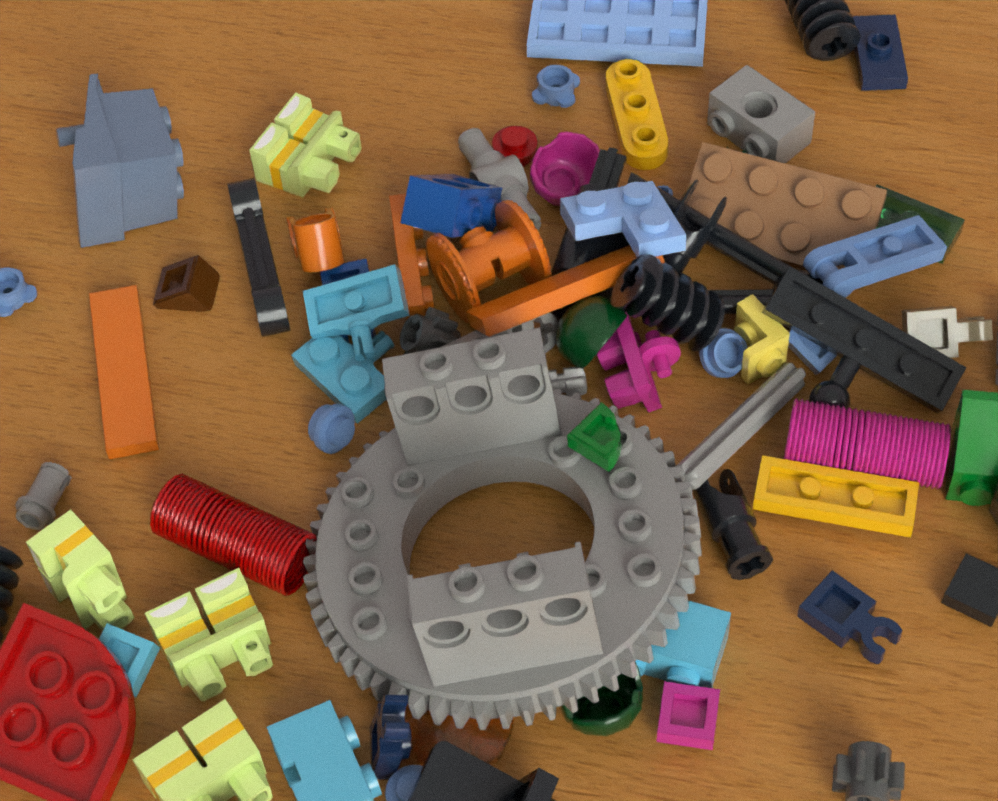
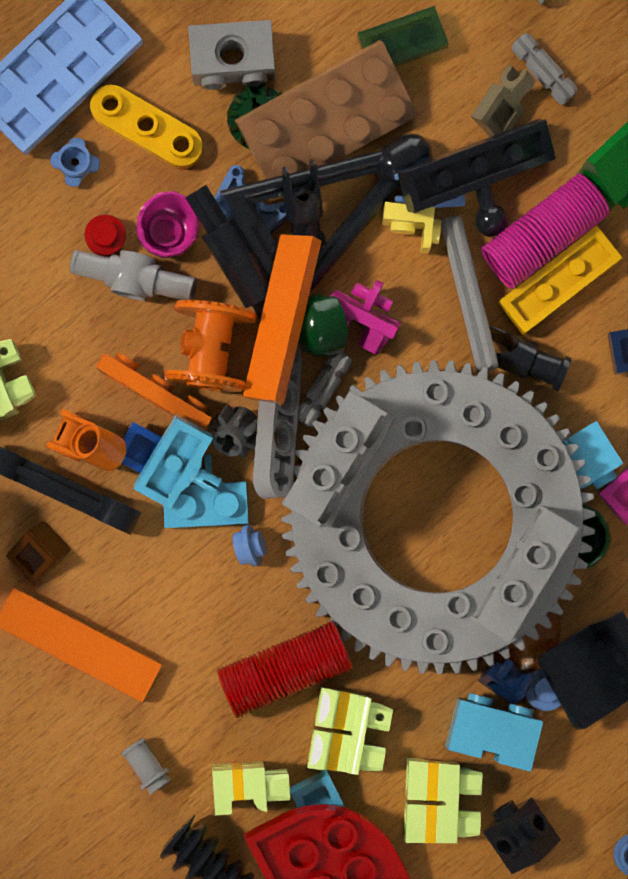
camera: 60 degrees left, 30 degrees up
(450, 204) = (148, 334): blue brick -> none
(597, 437) = (430, 404): green tile -> none
(631, 209) = (267, 226): light blue plate -> none
(669, 301) = (352, 265): black piece -> none
(724, 354) = (402, 252): medium blue plate -> none
(875, 255) = (425, 97): medium blue plate -> none

